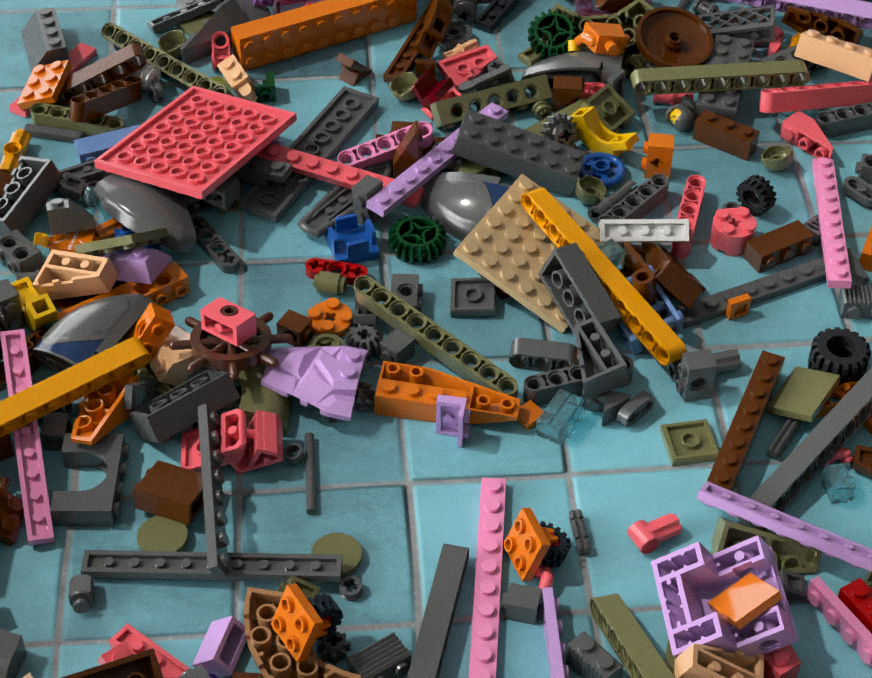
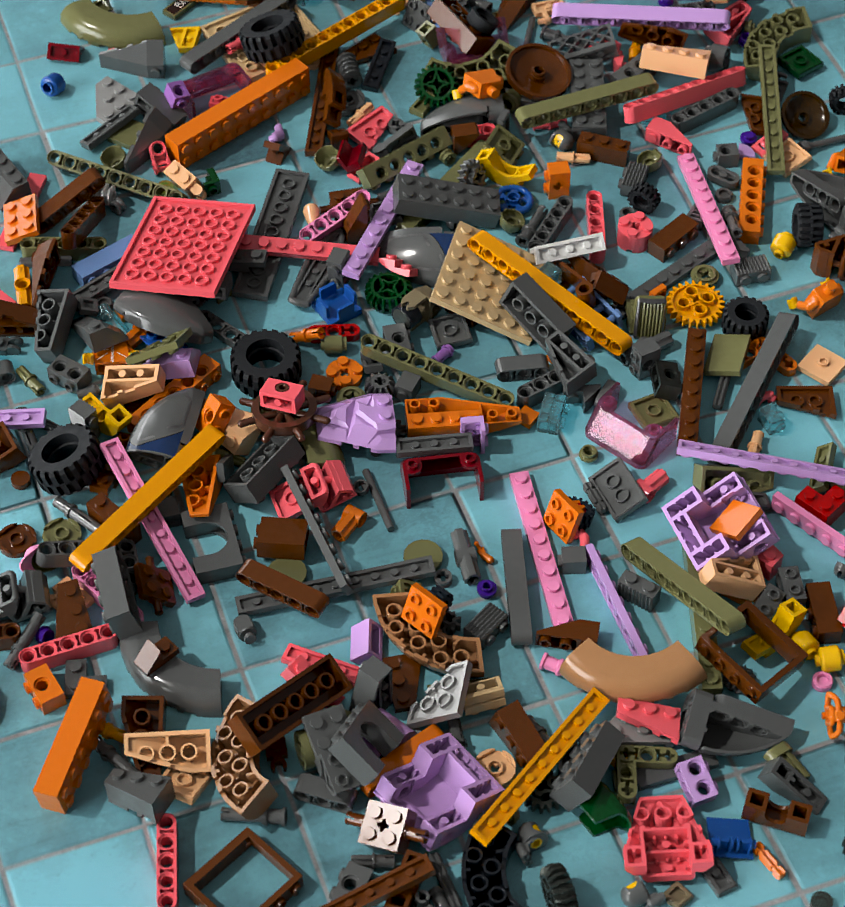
camera: 15 degrees left, 5 degrees up
(45, 134) = (44, 266): none -> reddish brown wedge
(143, 553) = (283, 588): none -> reddish brown beam
(242, 268) = (264, 346): none -> black tyre
(267, 487) = (351, 519): none -> orange piece
(301, 266) = (308, 335): none -> orange pin
(363, 54) = (278, 135): none -> lavender arm
(363, 135) = (311, 212): none -> light nougat cone
(388, 567) = (465, 556): none -> dark grey piece
(395, 447) = (441, 465): none -> dark red windscreen
(399, 422) = (434, 445): none -> dark grey fence
(401, 620) = (486, 593): none -> dark purple plate
(413, 569) = (483, 554): none -> orange piece
(435, 272) = (415, 308): none -> dark tan piece
(436, 212) = (396, 265): none -> coral slope
(458, 319) = (445, 352): none -> medium lavender pin
(589, 475) = (588, 453): none -> olive plate
(611, 527) = (618, 489): none -> dark grey tile
(640, 468) = (624, 438): none -> clear pink windscreen
(689, 138) = (573, 157): none -> light nougat axle
(715, 325) = (646, 315): none -> olive piece
(716, 407) = (666, 380): none -> pearl dark grey brick
(751, 166) = (631, 175): none -> dark grey brick
(781, 327) = (695, 304): none -> light orange gear
(804, 290) = (701, 271): none -> olive gear
(808, 511) = (756, 441): none -> light nougat axle
(856, 213) = (723, 195): none -> dark grey tile
(856, 240) = (731, 219): none -> dark grey pin

